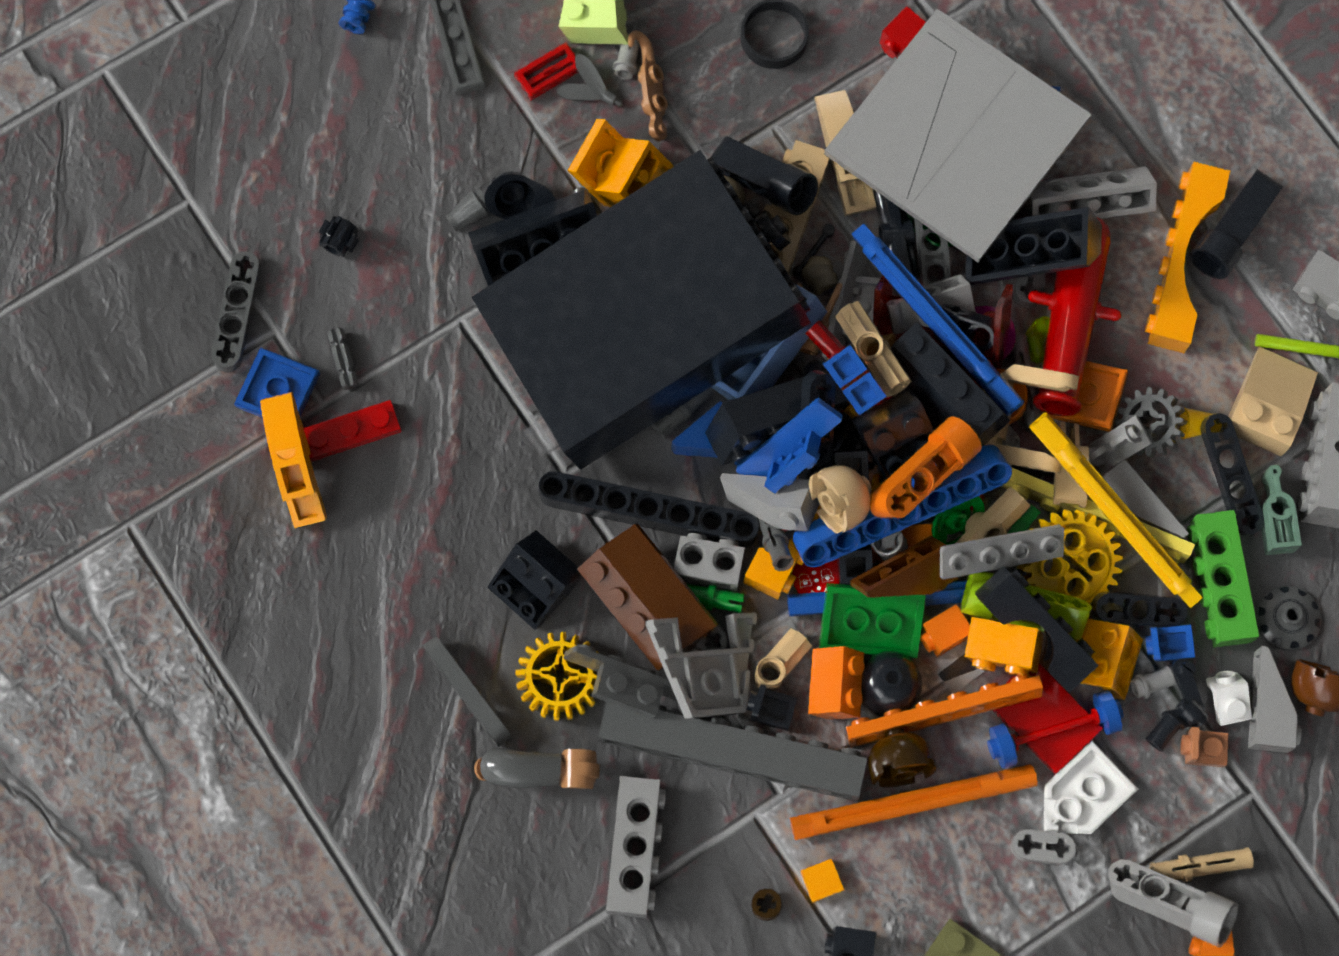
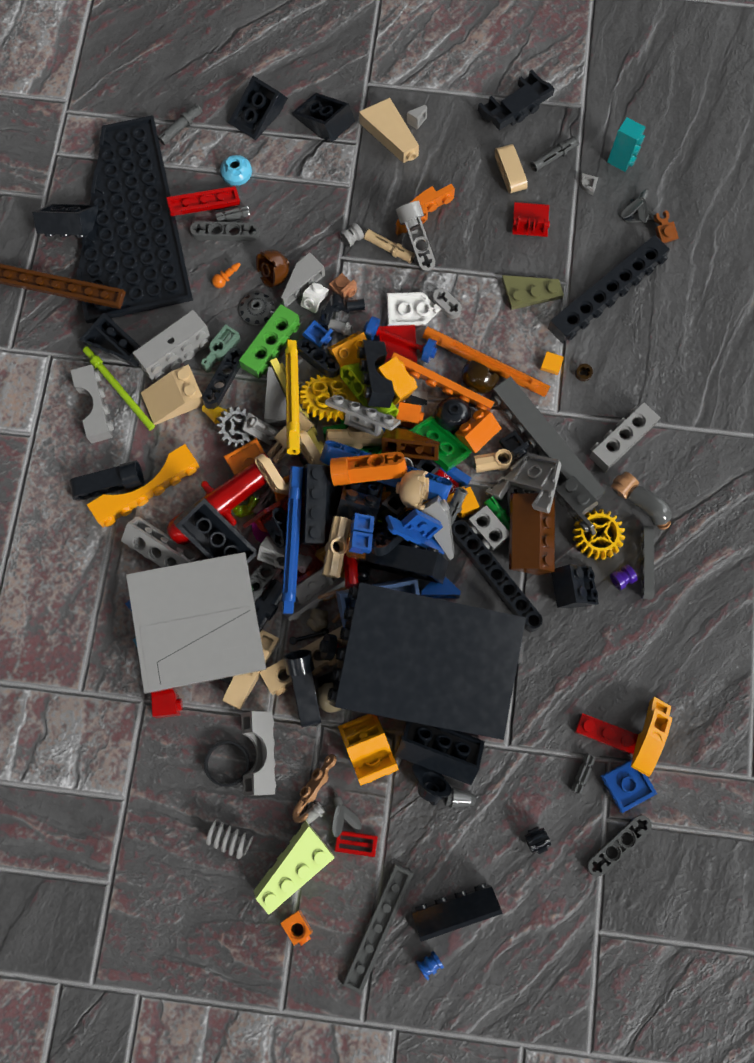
camera: 135 degrees left, 0 degrees up
(371, 82) = (456, 912): none -> black slope
(482, 644) = (623, 577): none -> dark purple wheel
(720, 43) = (259, 729): none -> light grey arch
(1268, 835) = (352, 234): none -> light grey wheel

